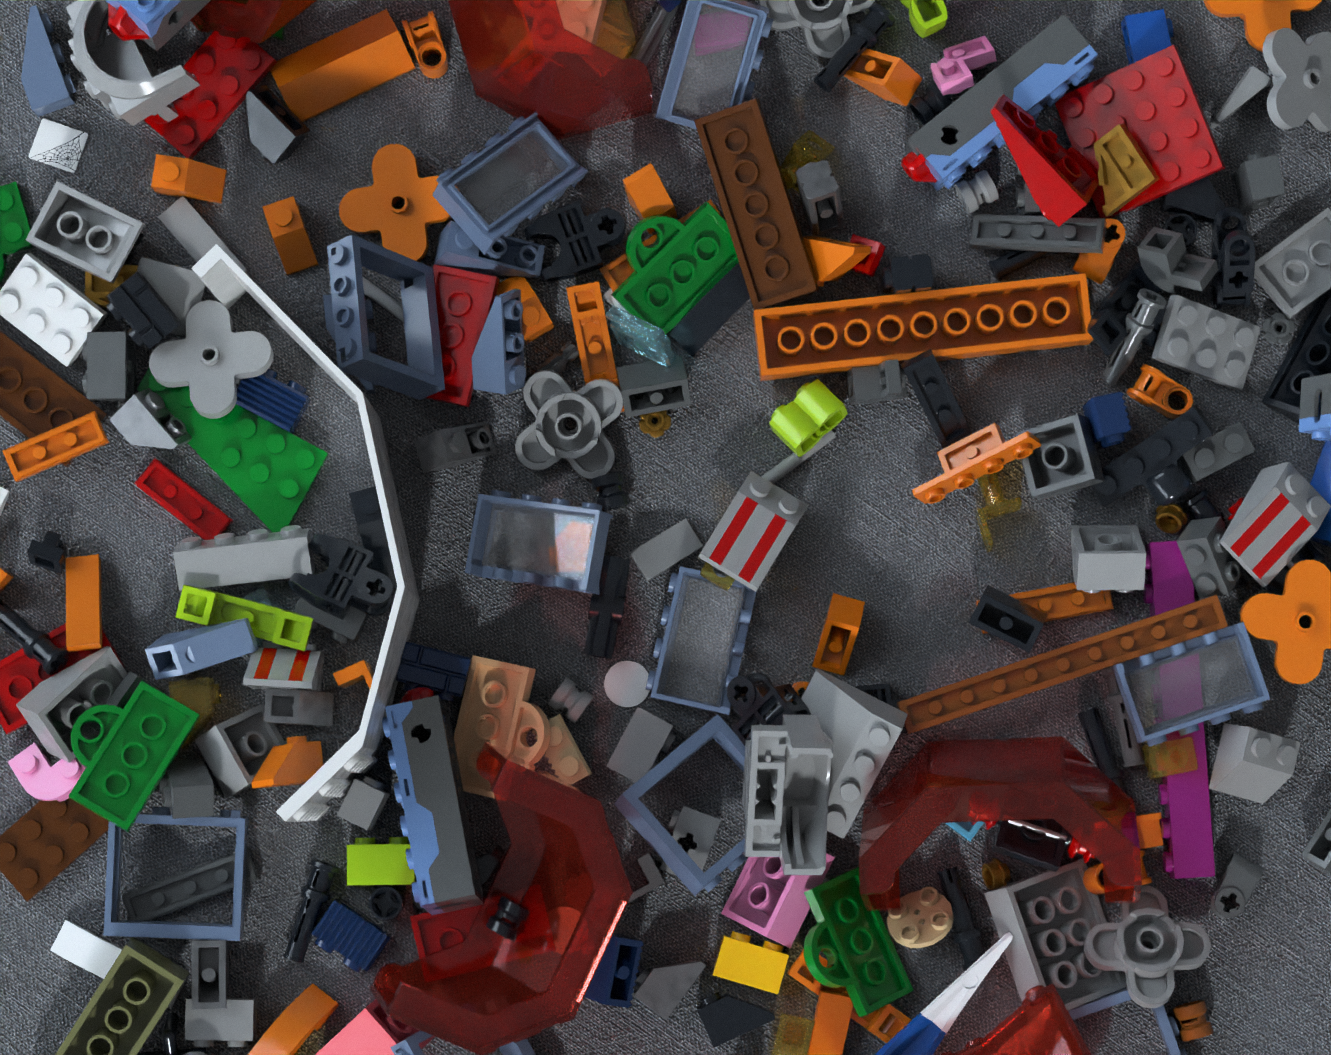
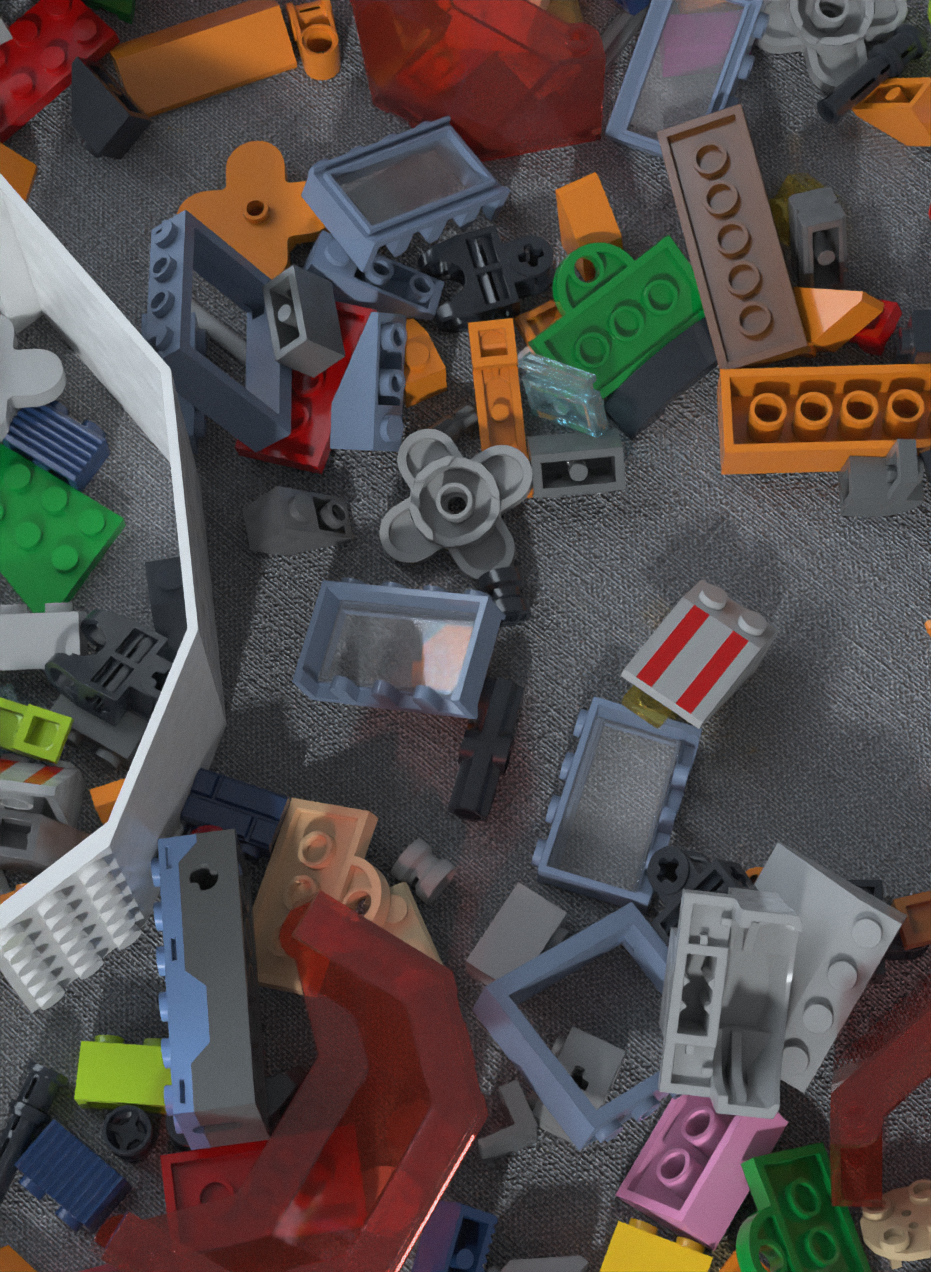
camera: 10 degrees right, 15 degrees down
(290, 235) = (109, 243): orange slope -> none
(364, 802) = (113, 983): light grey brick -> none
(444, 297) = (303, 321): none -> dark grey brick
(512, 911) = (309, 1151): black wheel -> none
(626, 683) = (504, 859): white sticker -> none
(655, 430) = (573, 524): pearl gold plate -> none
(666, 550) = (573, 682): light grey slope -> none
(793, 460) = (774, 571): light grey bar -> none
(807, 417) = (784, 520): lime brick -> none
(838, 634) = (813, 806): orange slope -> none

